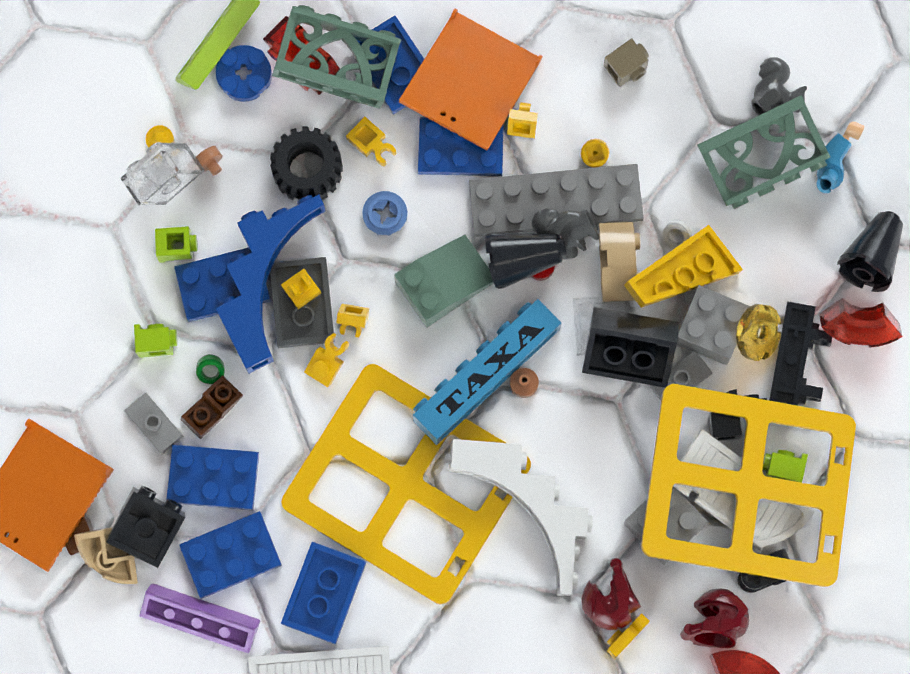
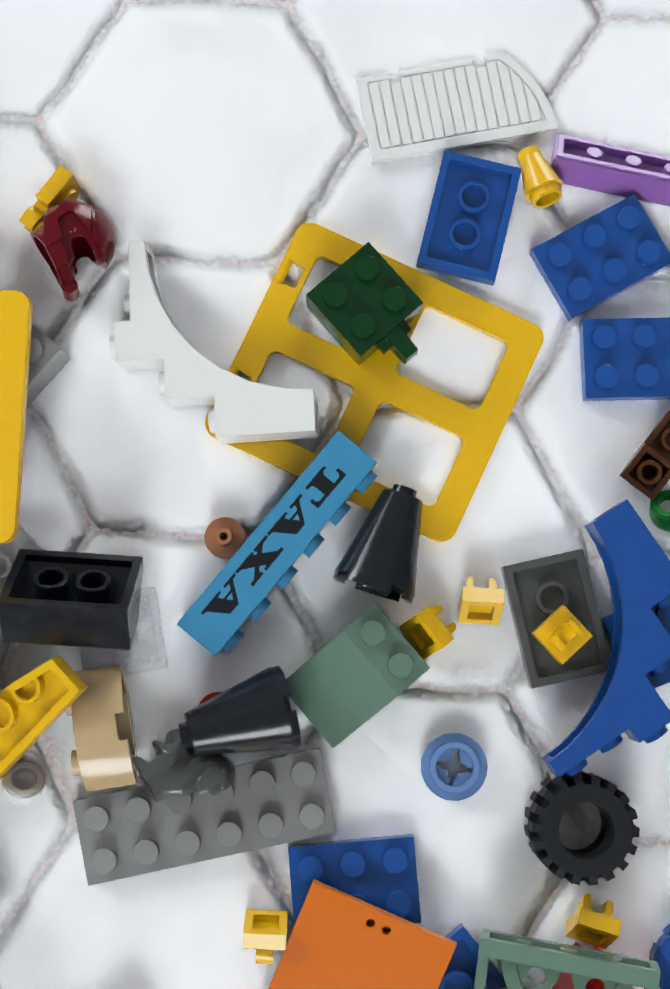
camera: 165 degrees right, 5 degrees up
(268, 617) = (539, 180): none -> yellow cone
(307, 102) = (591, 926): none -> yellow tile
(325, 363) = (509, 534): yellow plate -> none
(369, 139) = (493, 878): yellow plate -> none
(391, 301) = (427, 631): none -> yellow tile
(406, 528) = (366, 307): none -> dark green hinge
(413, 358) = (386, 547): none -> black cone
(595, 152) = (152, 895): yellow tile -> none

